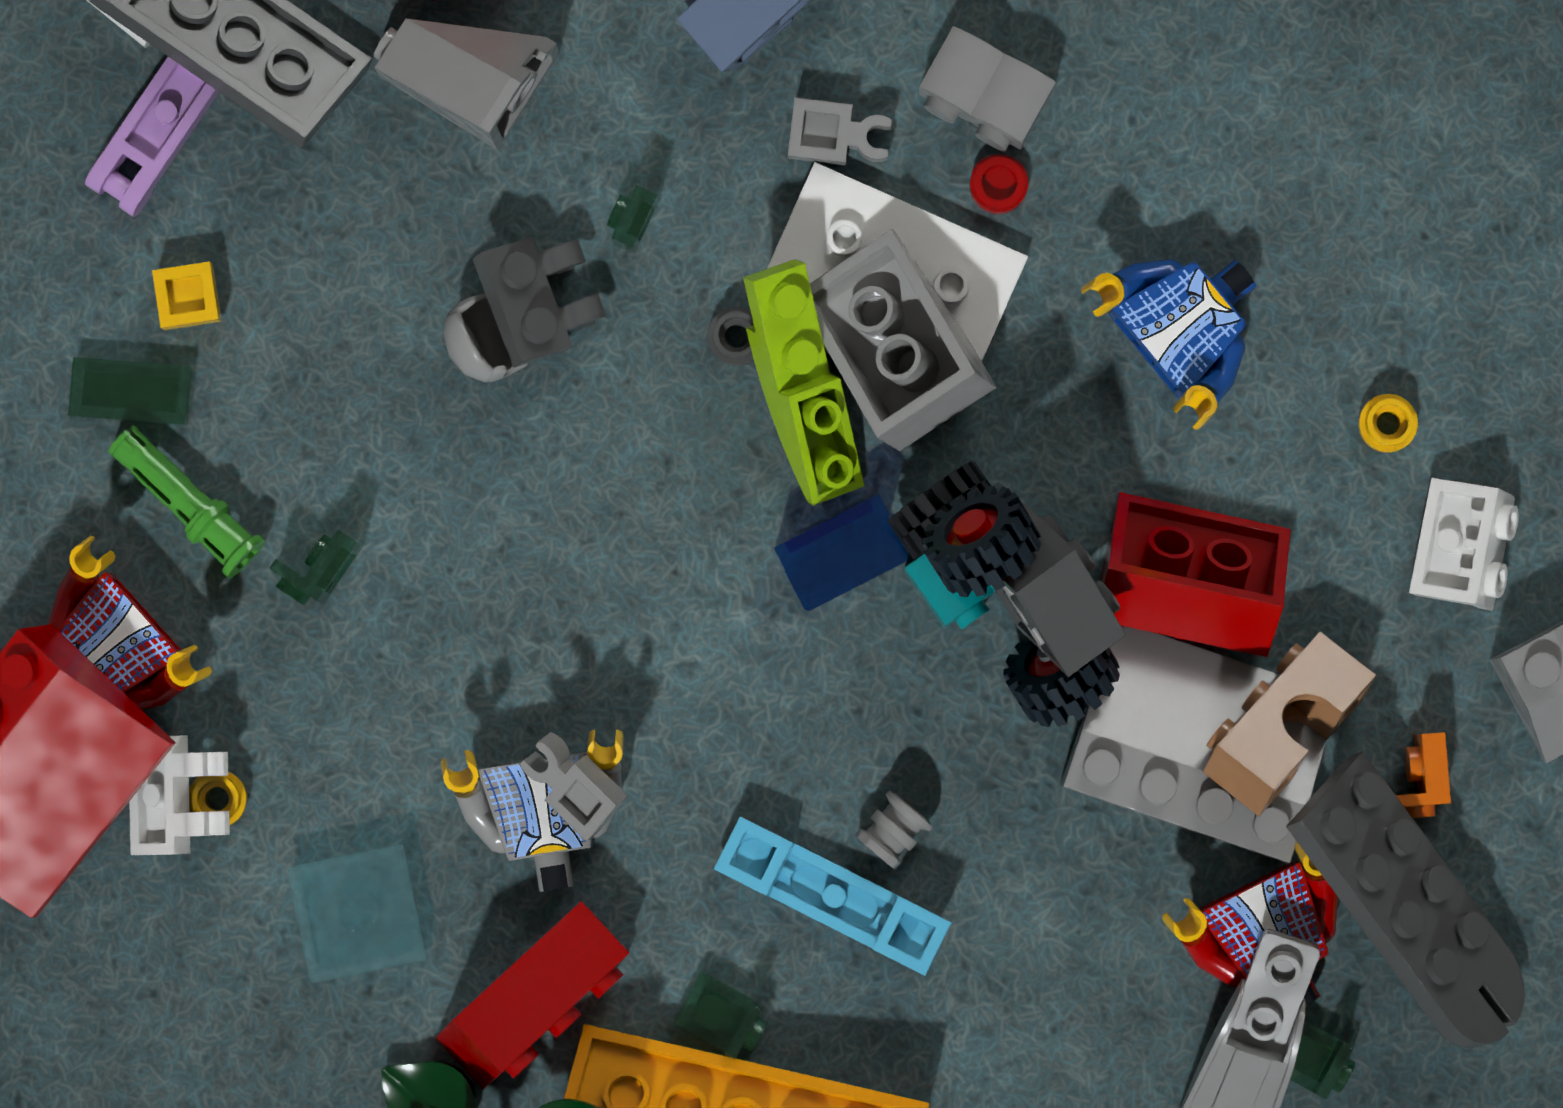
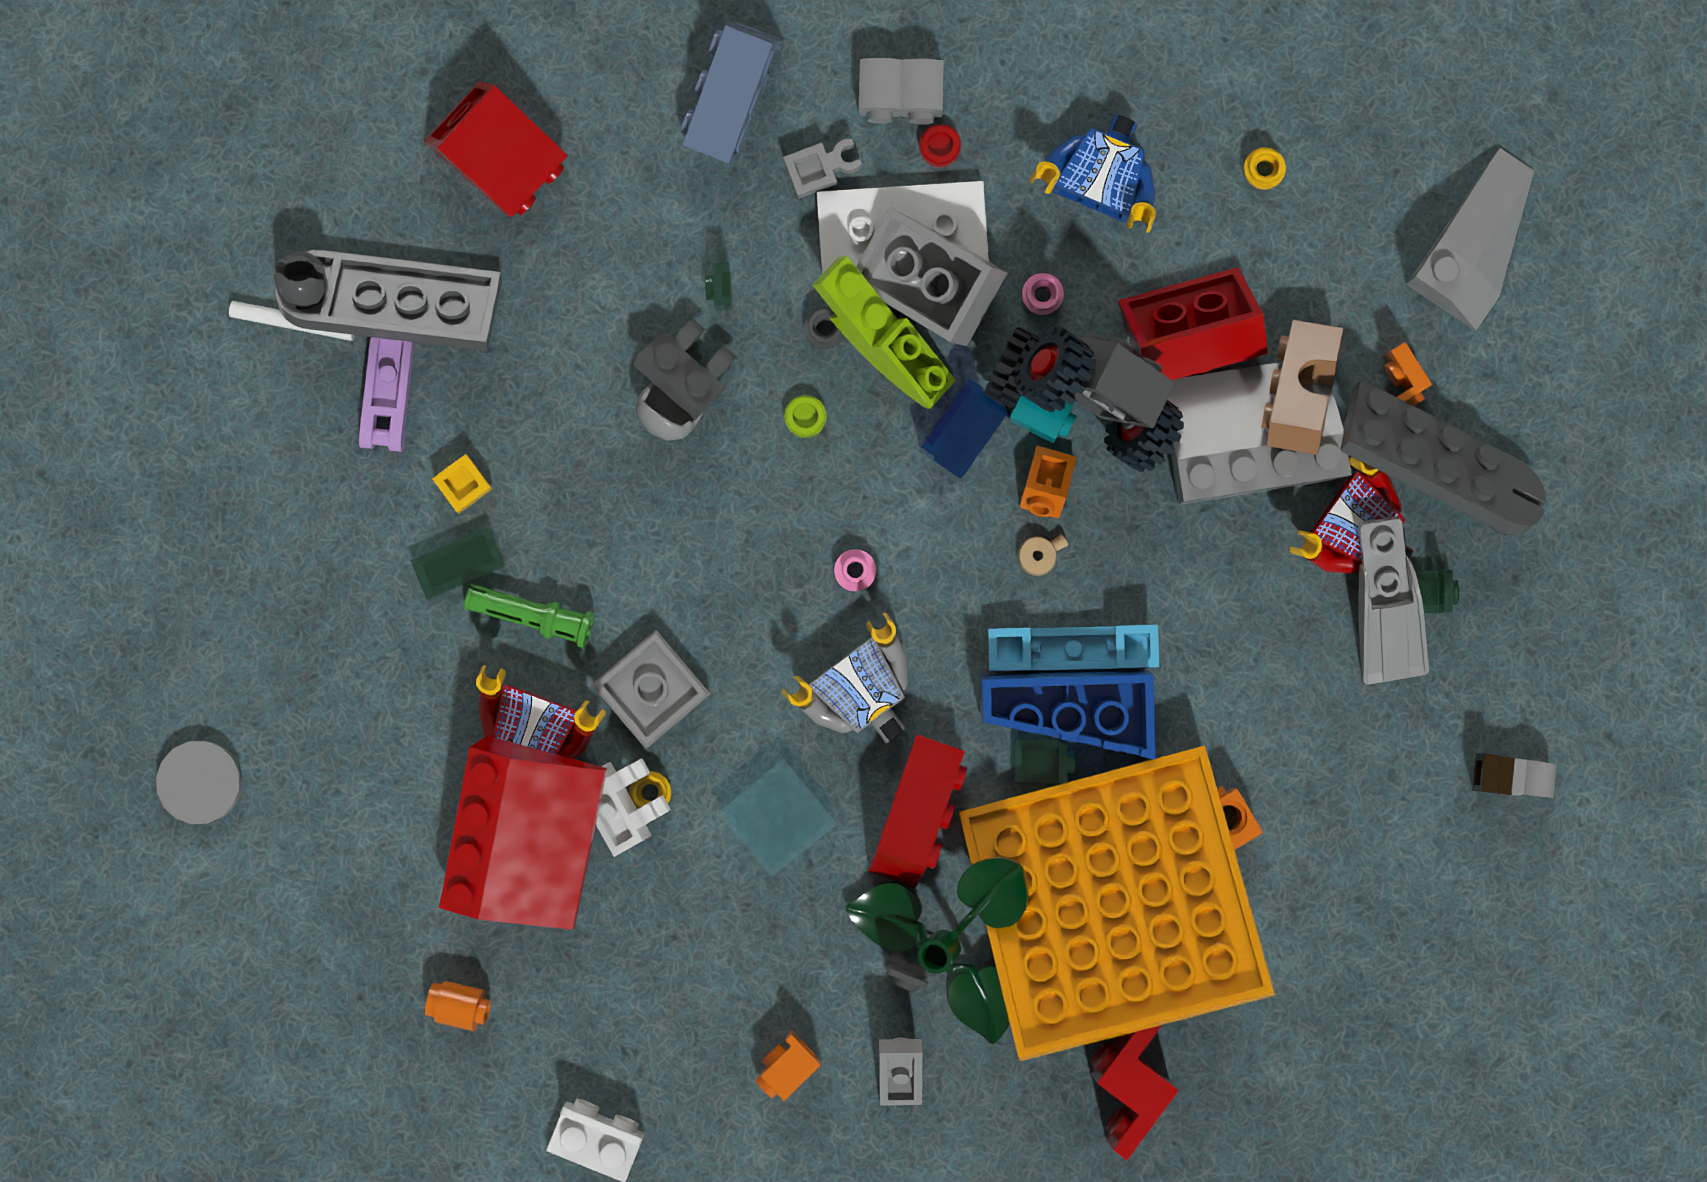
camera: 30 degrees left, 0 degrees up
(285, 672) = (651, 689): none -> light grey plate
(328, 564) = (641, 604): clear green bracket -> none
(466, 72) = (565, 249): light grey slope -> none
(580, 788) = (881, 663): light grey plate -> none
(631, 666) = (864, 580): none -> bright pink plate
(654, 433) = (805, 416): none -> lime tile
(794, 969) = (1082, 707): none -> blue wedge
(867, 757) = (1046, 548): none -> tan piece
(893, 829) = (1089, 586): light grey bush -> none
(910, 673) = (1048, 482): none -> orange bracket
(1047, 435) = (1046, 281): none -> bright pink plate
(1464, 543) = (1352, 218): white bracket -> none

